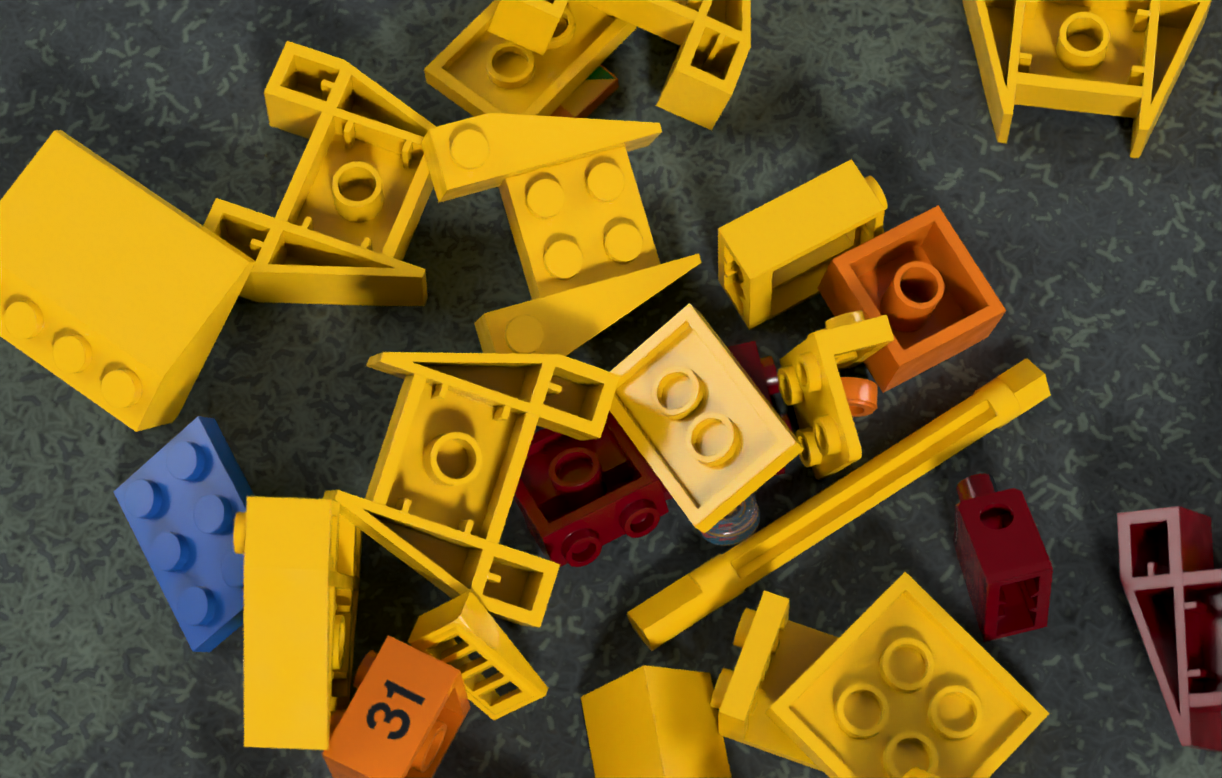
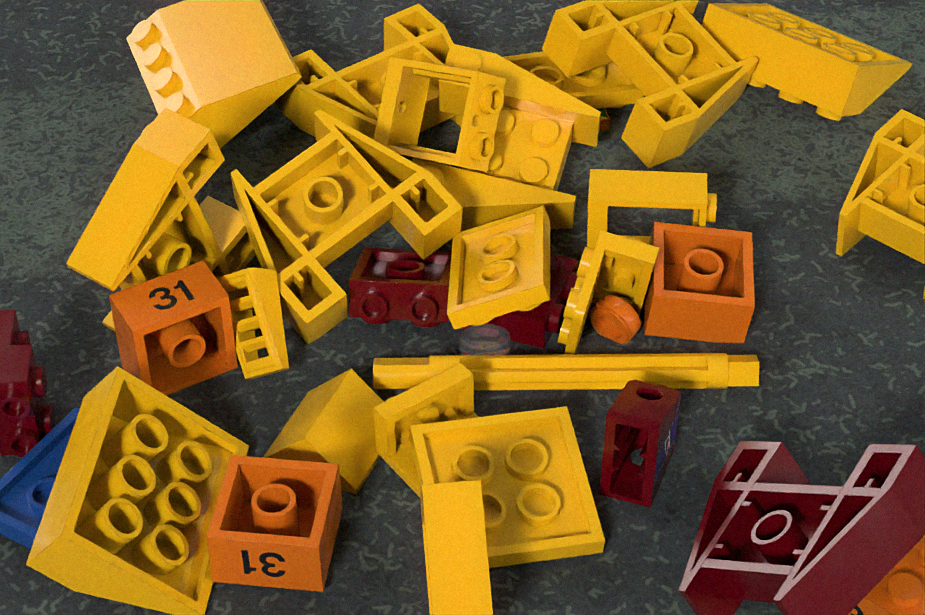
camera: 30 degrees right, 25 degrees down
(427, 261) = (408, 85): none -> yellow window

